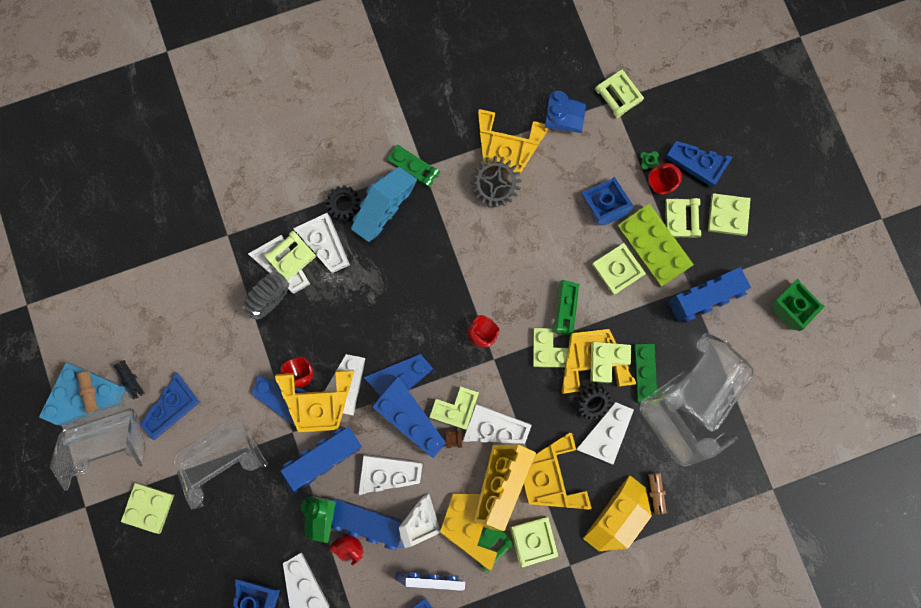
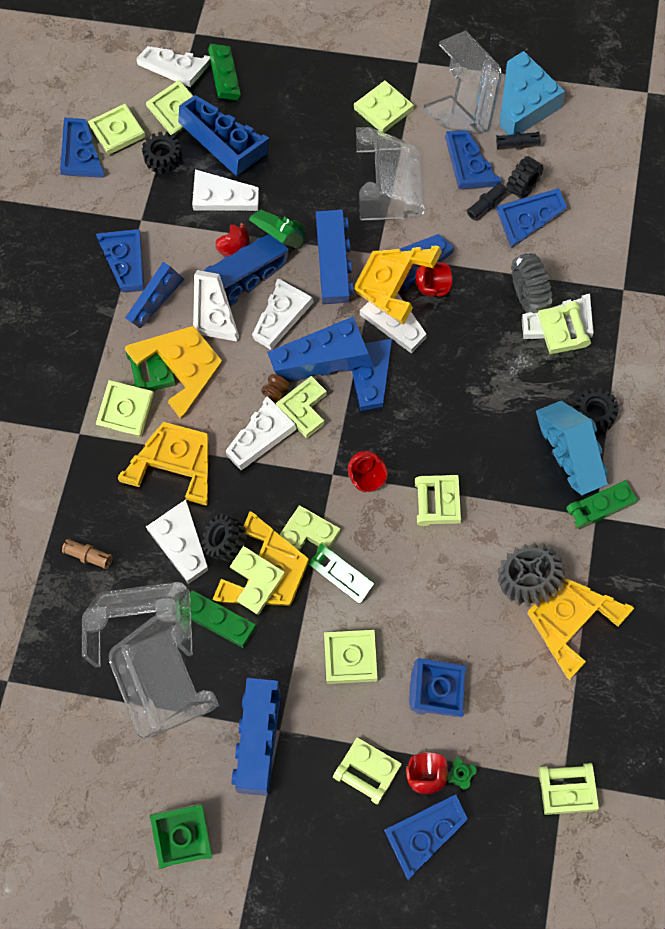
camera: 125 degrees right, 15 degrees down
(87, 392) = (521, 91): medium nougat pin -> none
(167, 352) = (524, 177): none -> black tyre
(198, 335) = (529, 214): none -> blue wing
(201, 373) = (486, 201): none -> black pin
(324, 241) = (567, 372): white wing -> none
(471, 268) = (446, 500): none -> yellowish green plate
(502, 485) = (197, 399): yellow wedge -> none
(565, 113) = (577, 704): blue slope -> none
(621, 518) = (88, 506): yellow wedge -> none
(655, 245) = (353, 715): lime plate -> none
(729, 214) = (339, 830): yellowish green plate -> none

